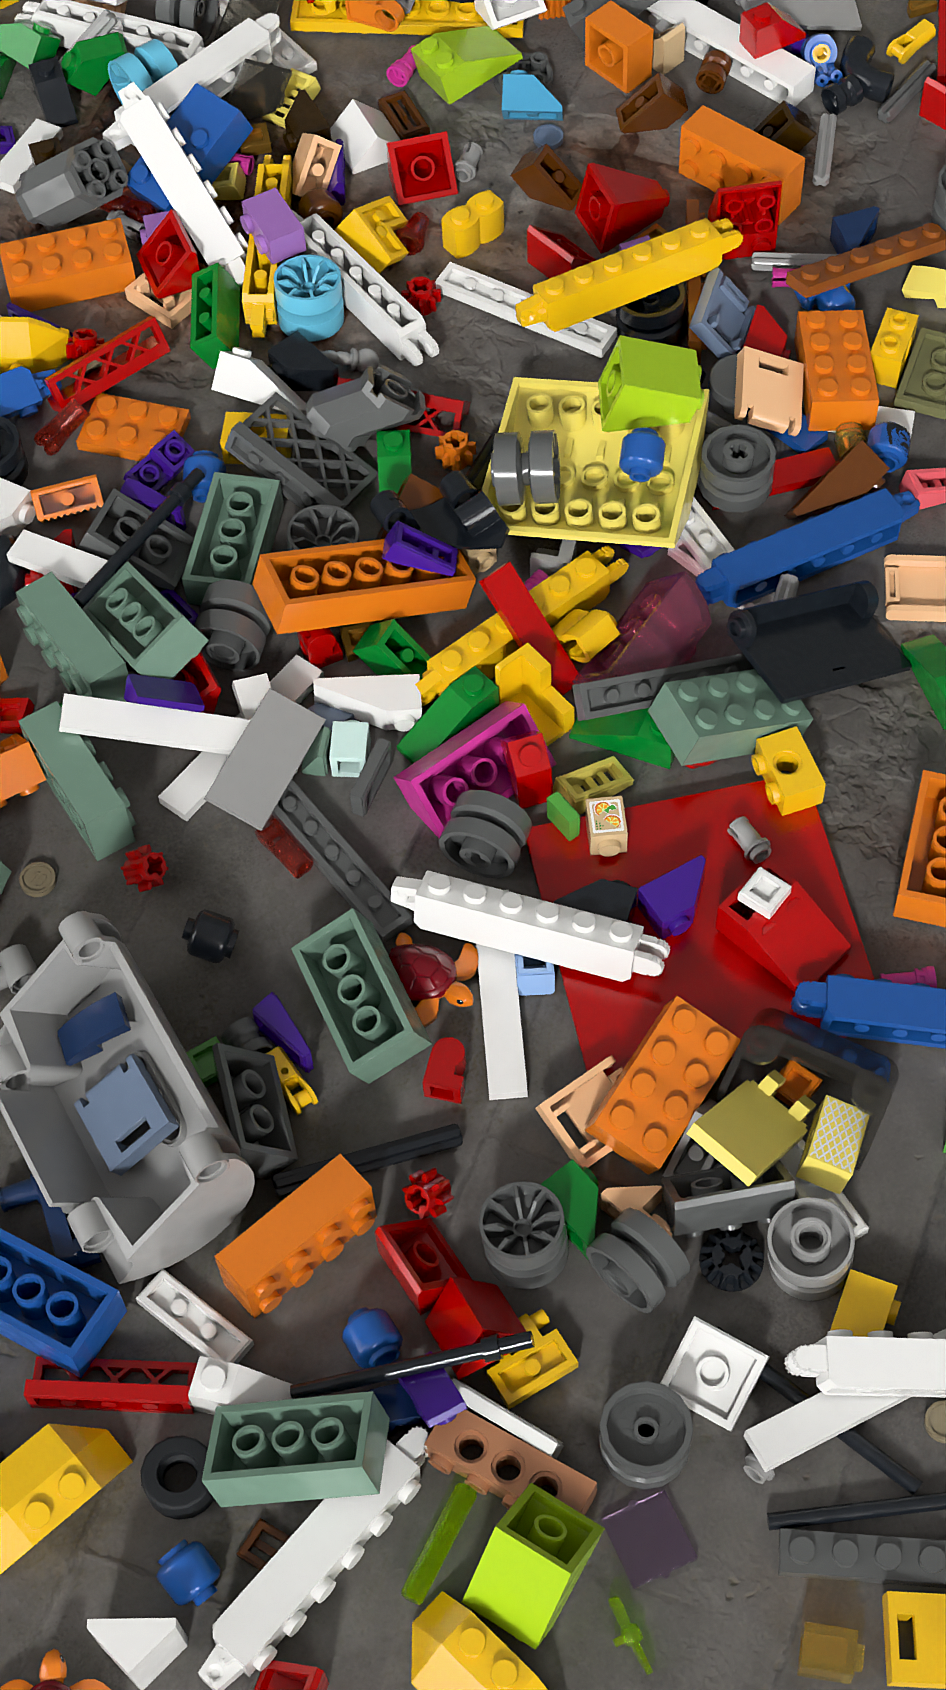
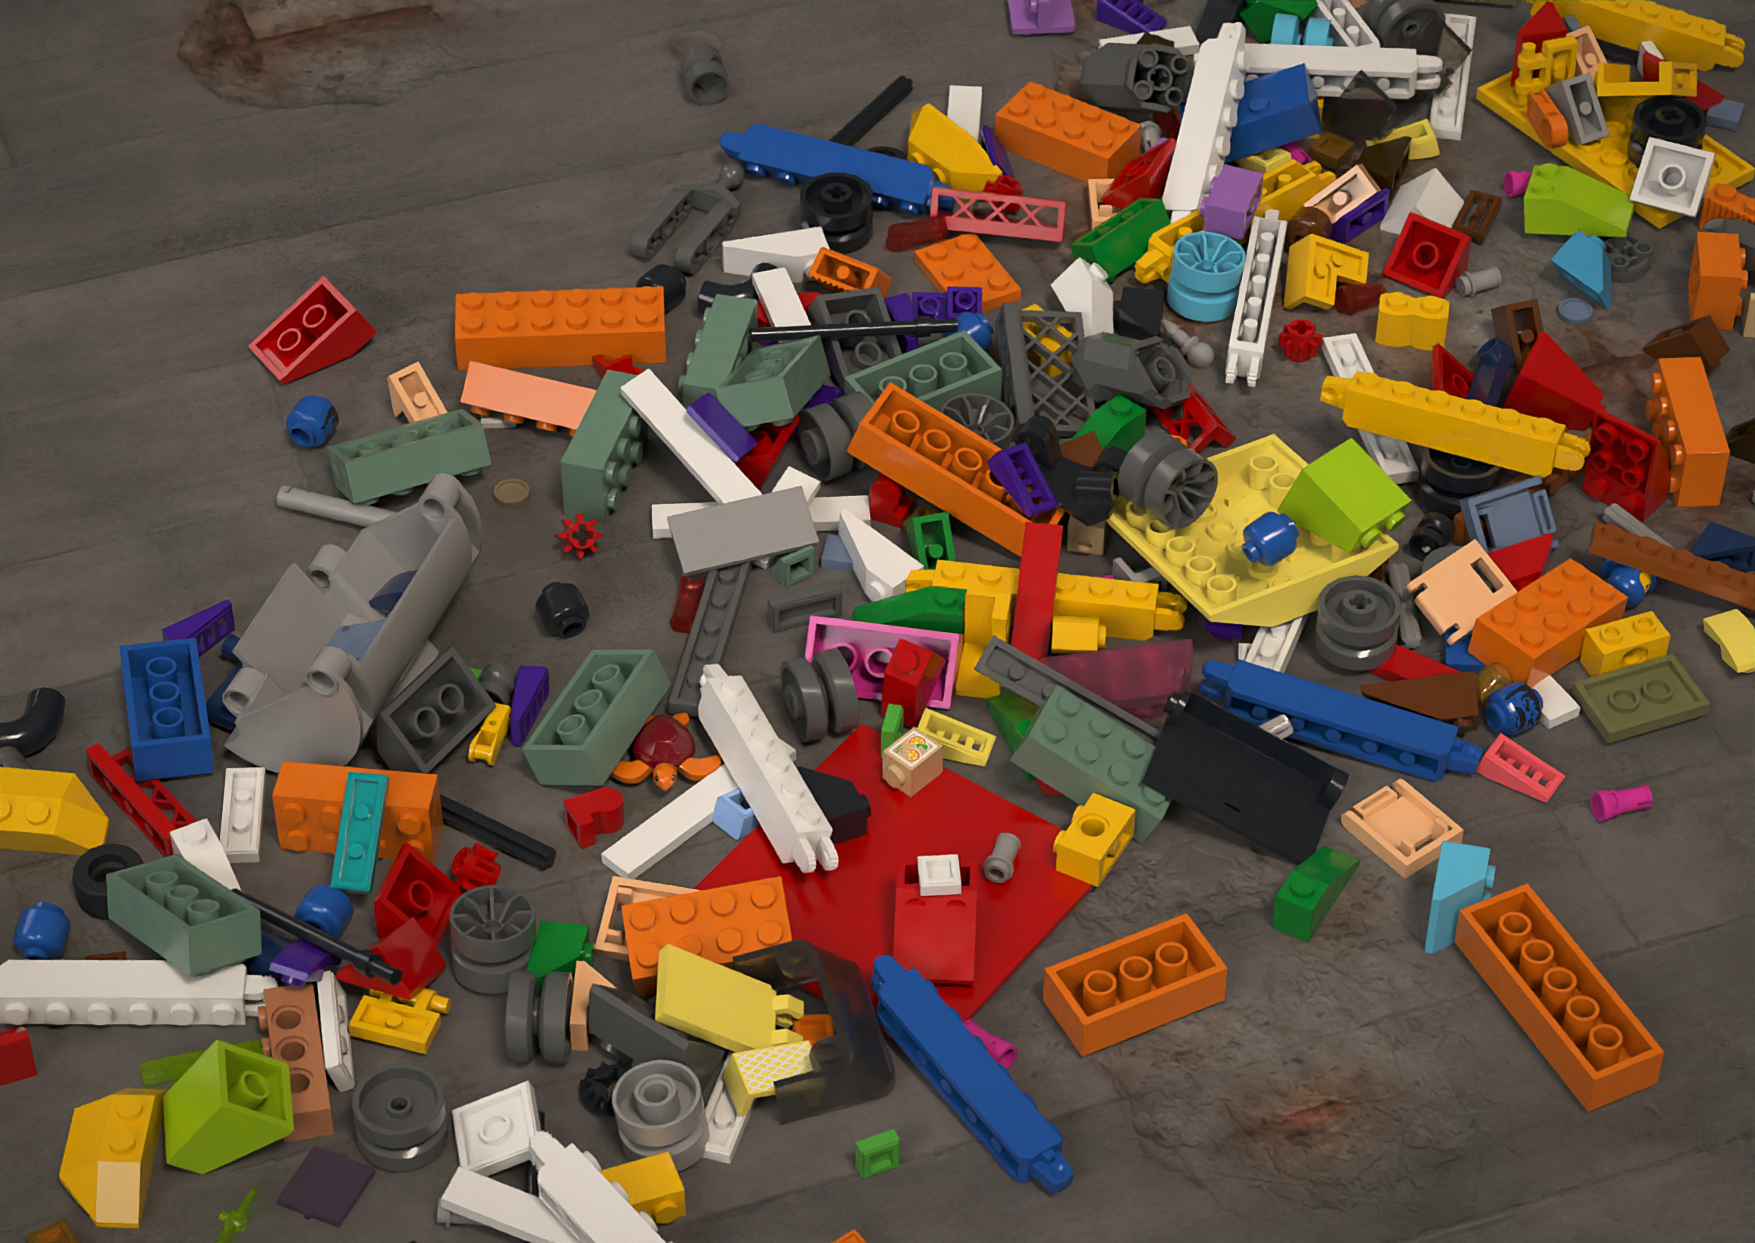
camera: 45 degrees right, 15 degrees down
(343, 1253) = (360, 832): none -> teal tile
(349, 747) = (814, 570): light aqua brick -> none
(576, 227) = (1492, 368): none -> dark blue piece
(673, 898) = (887, 837): dark purple slope -> none

